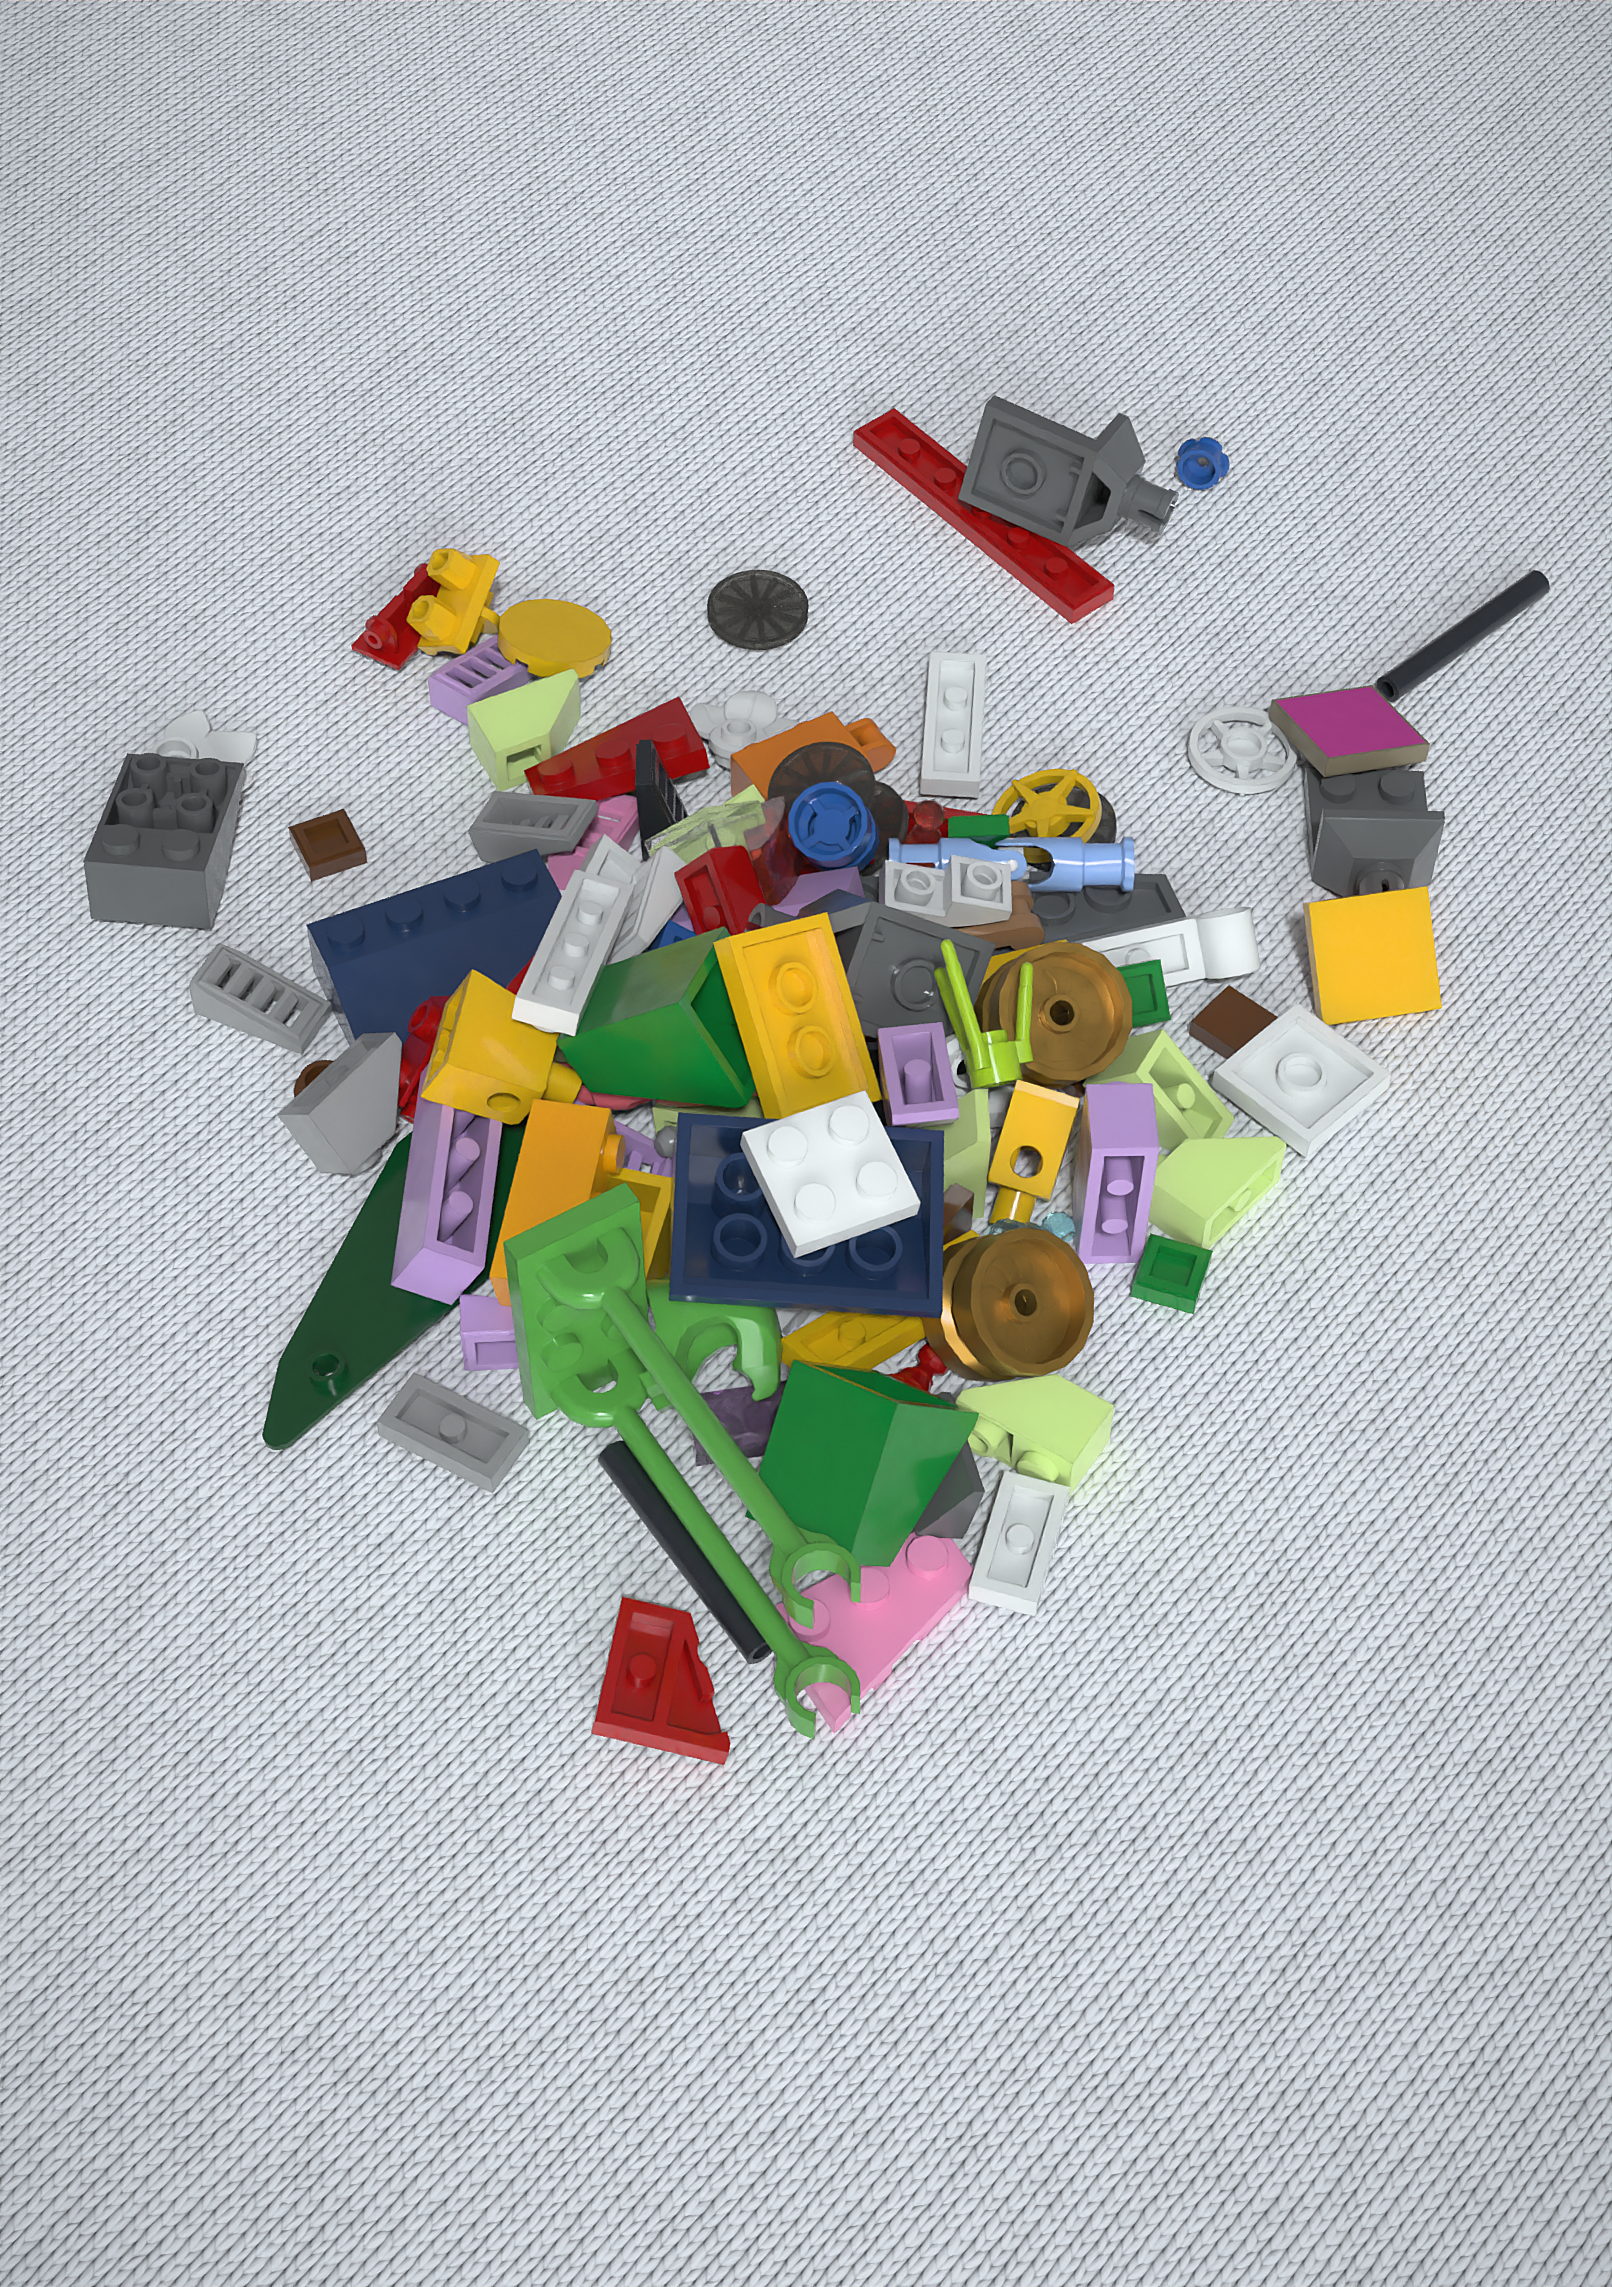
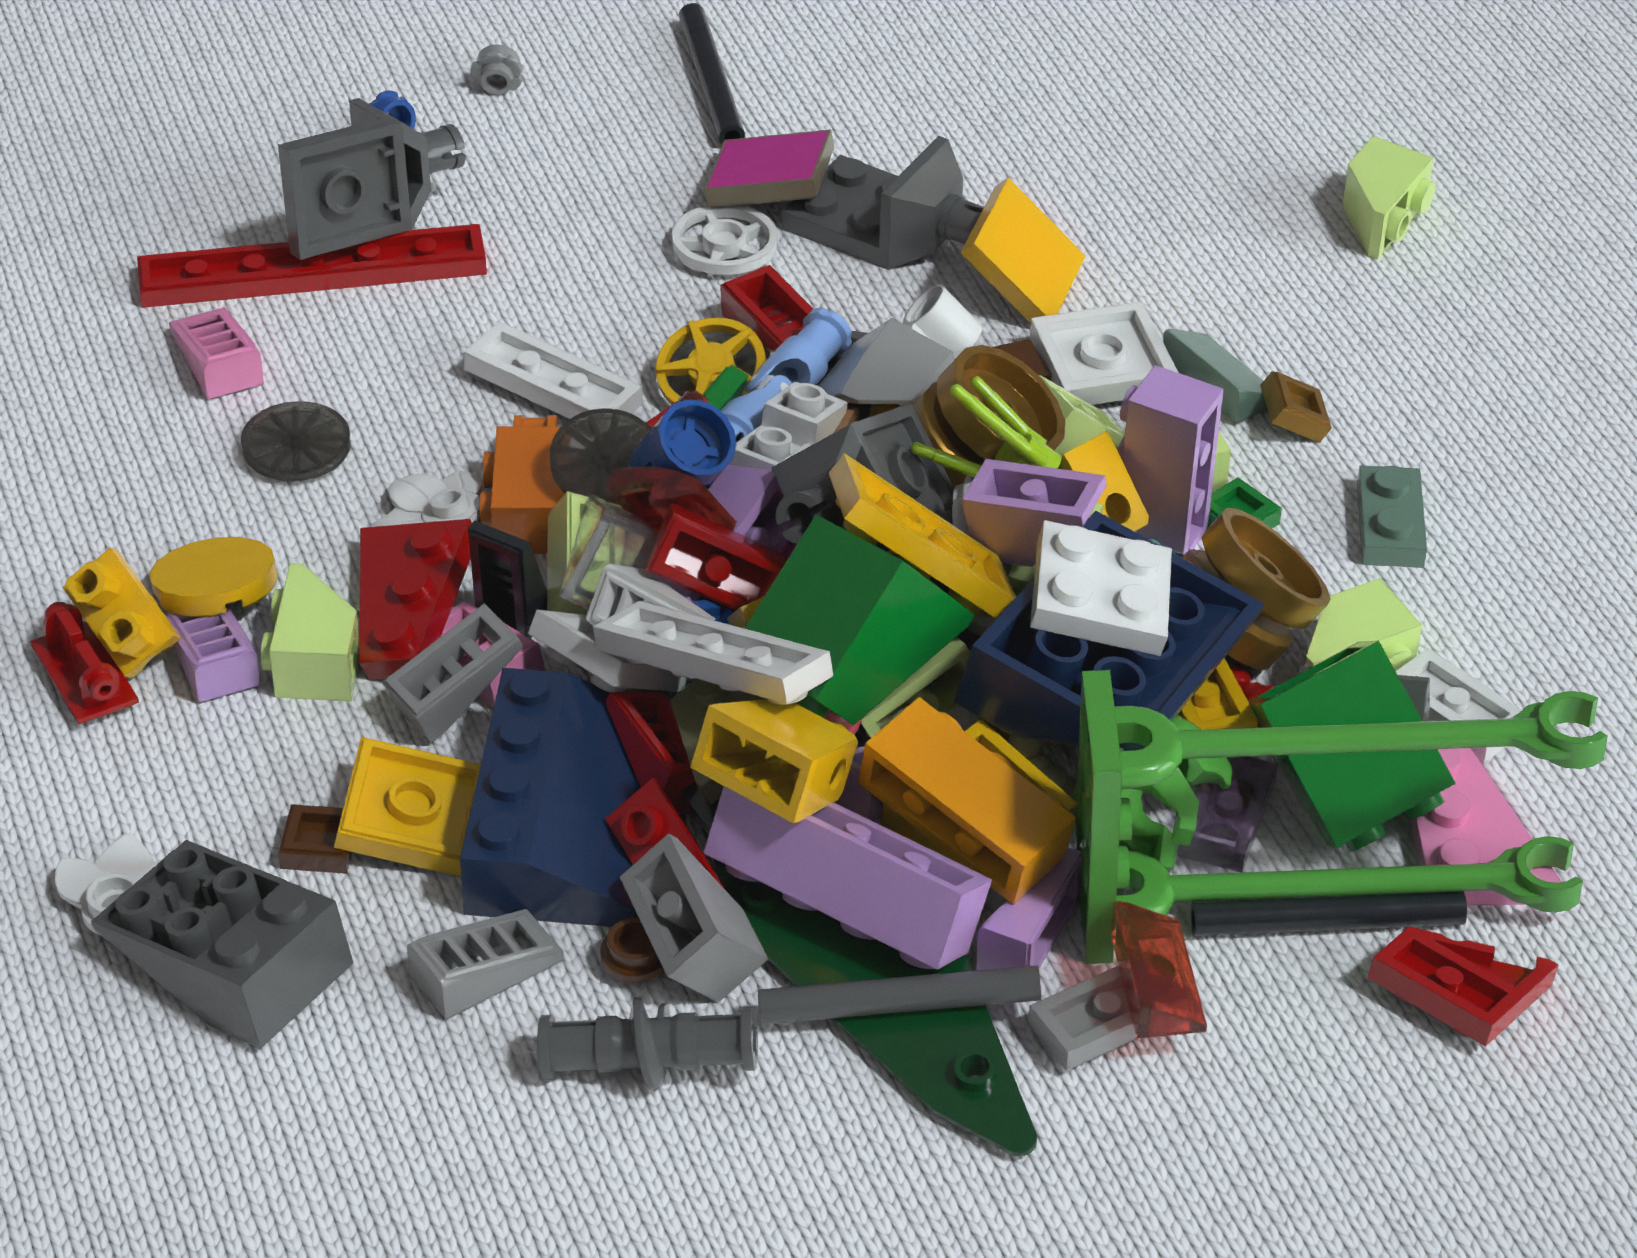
camera: 60 degrees left, 10 degrees down
(217, 1140) = (647, 1043): none -> dark grey piece
(372, 1280) = (899, 994): none -> dark grey piece
(379, 860) = (407, 806): none -> yellow tile
(491, 1438) = (1155, 972): none -> clear red slope
(817, 535) = (218, 352): none -> bright pink slope
(1098, 919) = (887, 367): none -> light grey slope
(1164, 796) = (765, 305): none -> red slope
(1261, 1394) = (1391, 516): none -> sand green plate
(1330, 496) = (497, 69): none -> light grey plate
(1348, 1254) = (1296, 406): none -> pearl gold tile
(1357, 1178) = (1209, 362): none -> sand green slope

